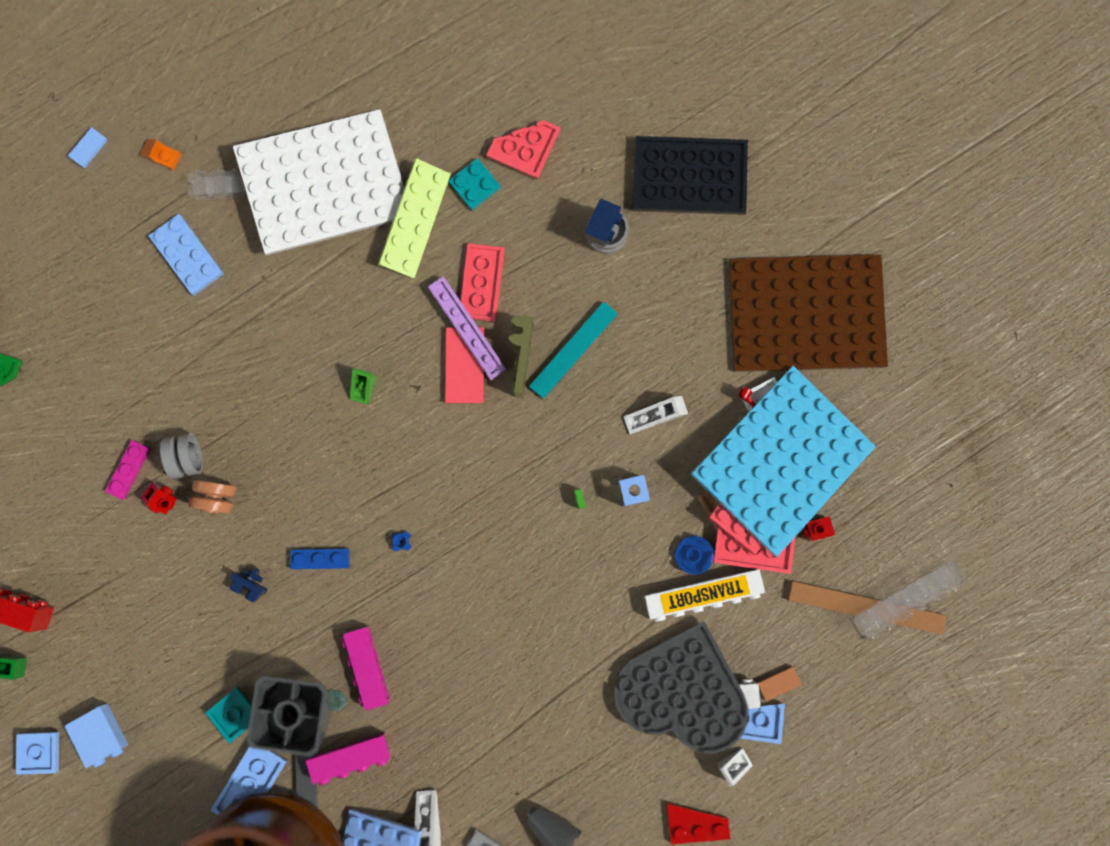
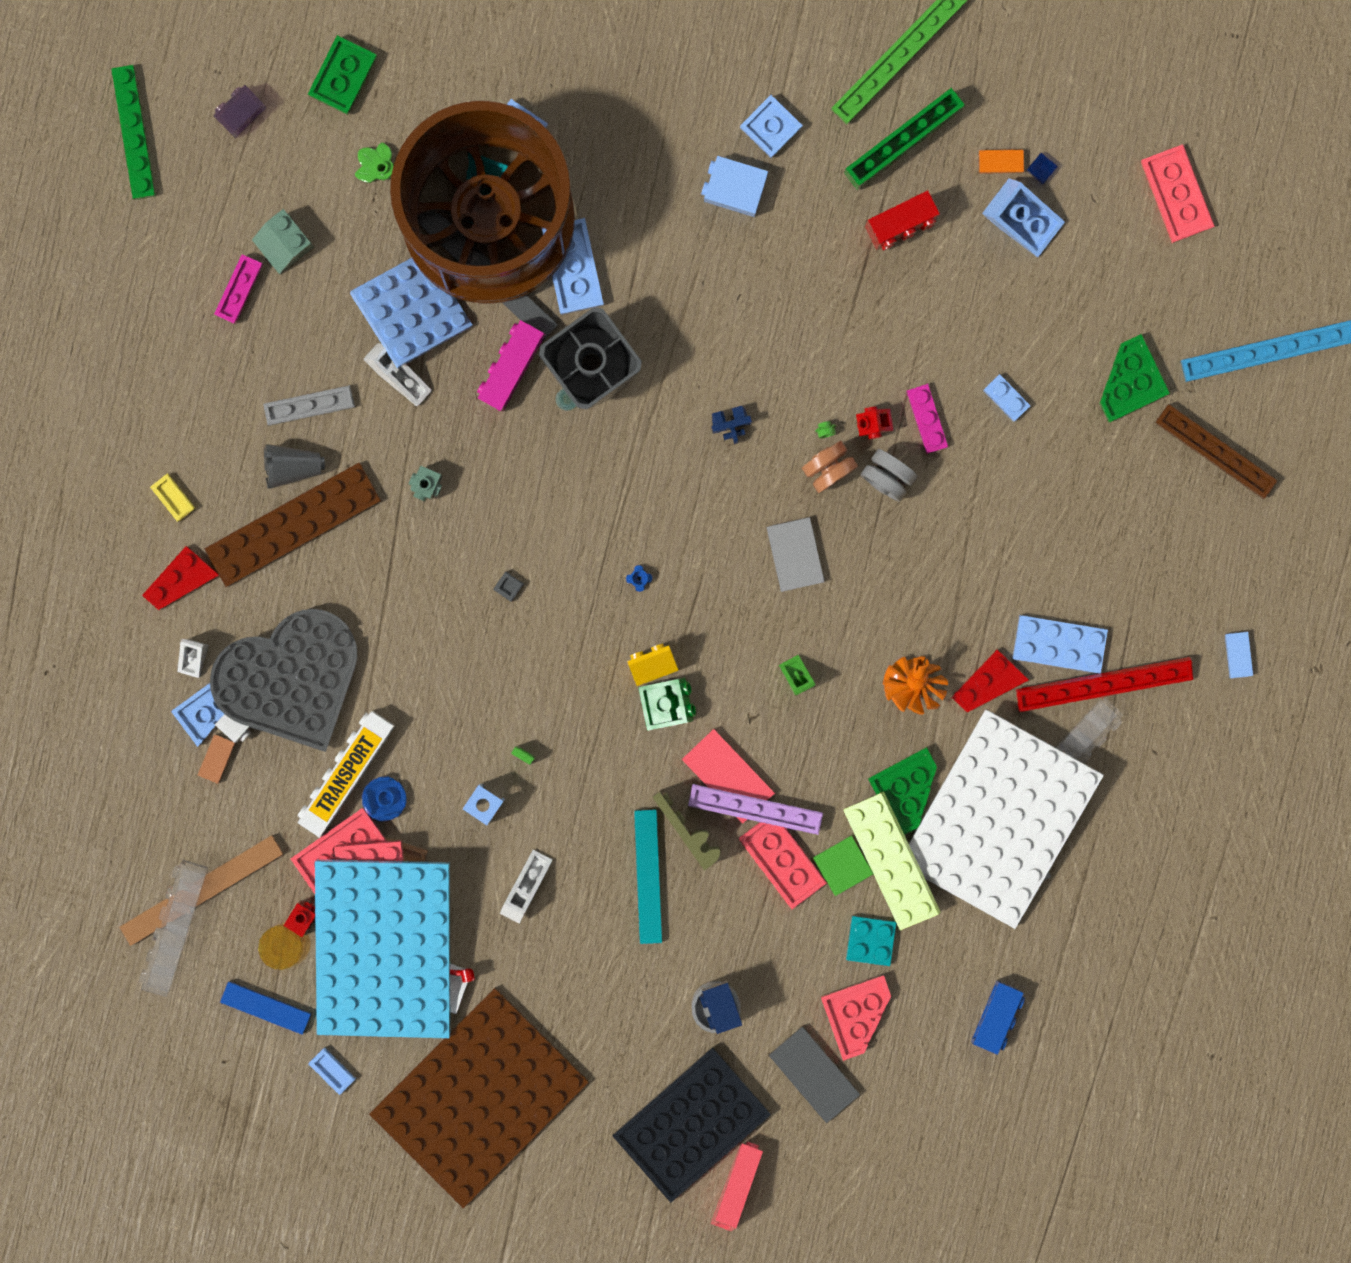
camera: 130 degrees right, 5 degrees up
(67, 436) = (1006, 398): none -> light blue plate
(160, 154) = (1170, 709): orange slope -> none
(183, 205) = (1104, 684): none -> red tile
(195, 523) = (825, 430): none -> bright green plate
(231, 715) = (640, 308): teal plate -> none
(251, 272) = (989, 681): none -> red wing
(290, 463) = (795, 554): none -> light grey tile
(294, 315) = (909, 681): none -> orange piece
(320, 559) = (692, 499): blue plate -> none
(361, 255) = (907, 787): none -> green plate
(366, 667) = (566, 449): dark pink brick -> none
(442, 67) = (998, 1017): none -> blue brick
(443, 477) = (652, 665): none -> yellow slope
(447, 245) = (843, 865): none -> bright green tile
(459, 445) = (667, 703): none -> plate
(472, 739) = (425, 475): none -> sand green brick
(488, 615) = (508, 586): none -> dark grey tile
(586, 137) = (814, 1074): none -> dark grey tile
(588, 790) = (292, 524): none -> reddish brown plate
(698, 111) = (737, 1187): none -> coral slope
(849, 523) = (280, 947): none -> clear yellow tile
(886, 415) = (331, 1070): none -> light blue tile
(893, 494) = (265, 1007): none -> blue tile

